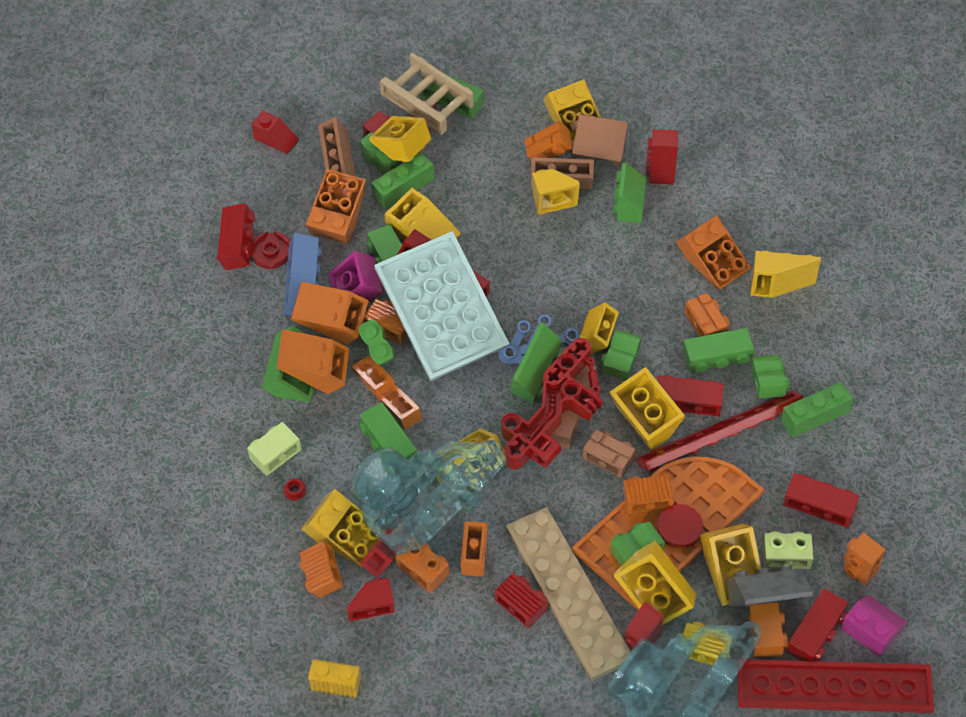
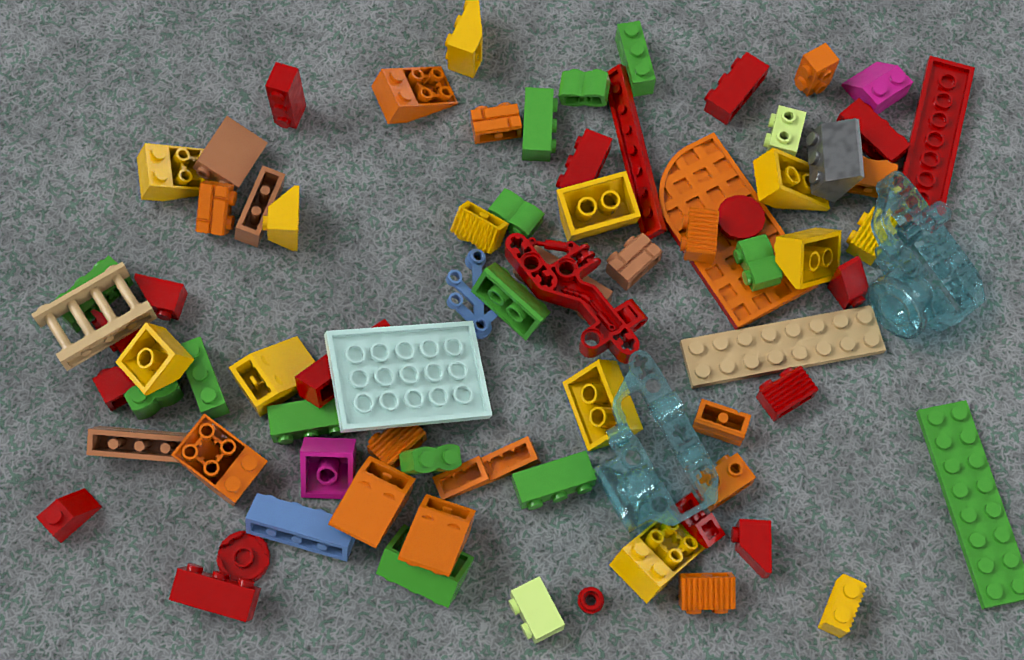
camera: 80 degrees left, 10 degrees up
(463, 136) = (163, 295): none -> red slope
(629, 194) = (315, 148): bright green slope -> none

